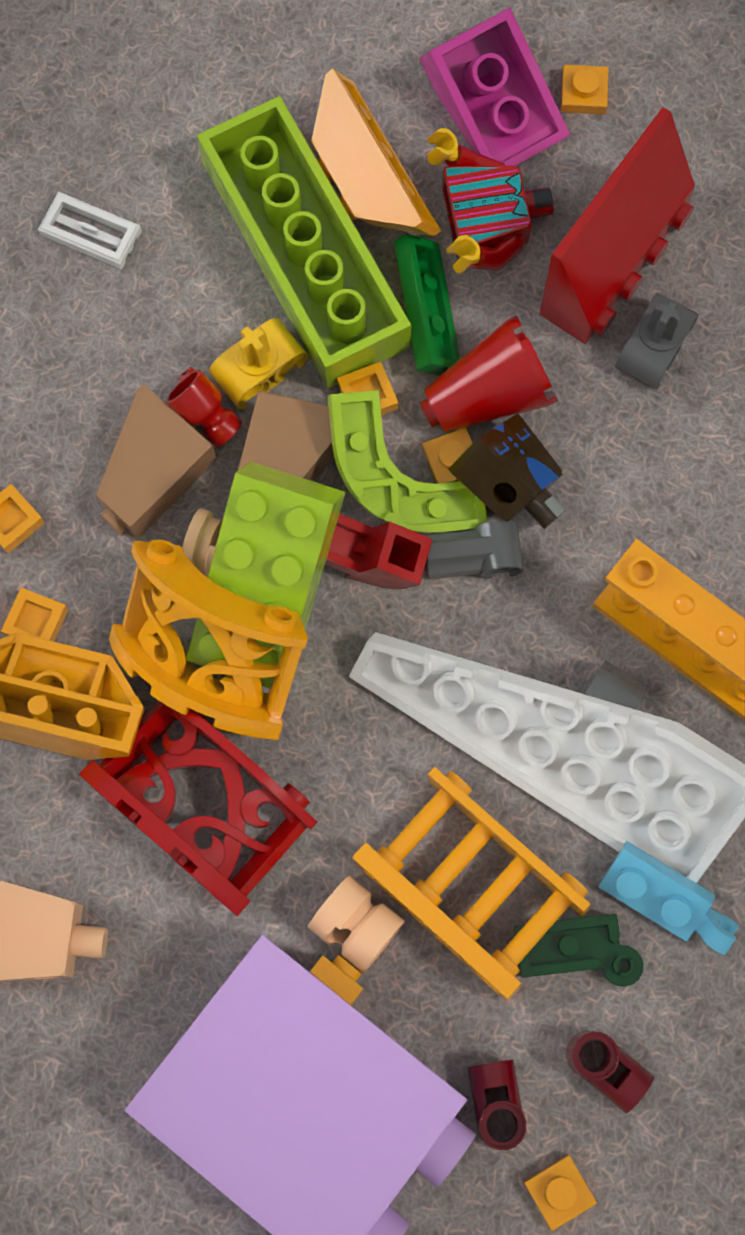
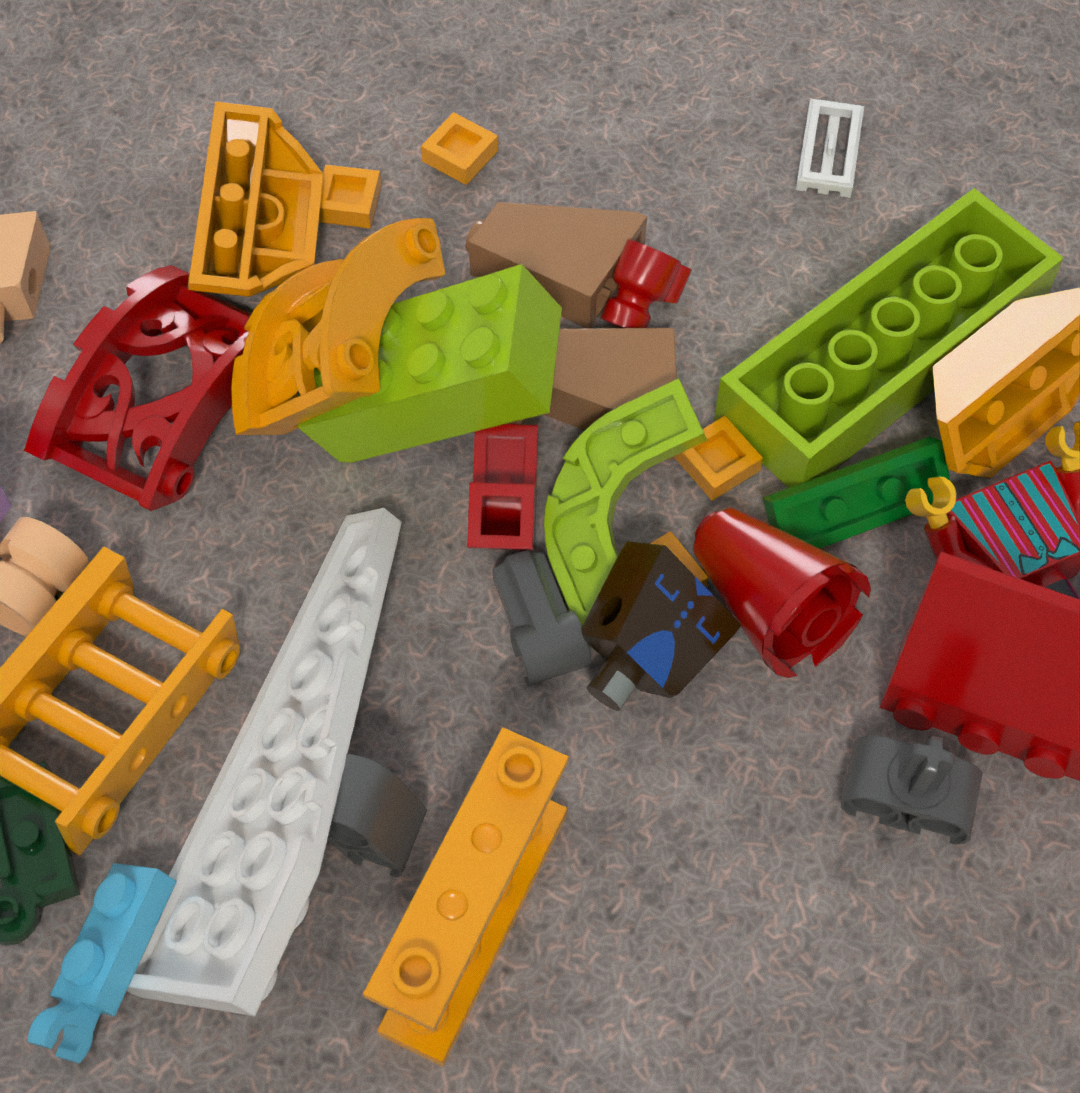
camera: 75 degrees right, 15 degrees down
(257, 361) = (716, 325): yellow beam -> none

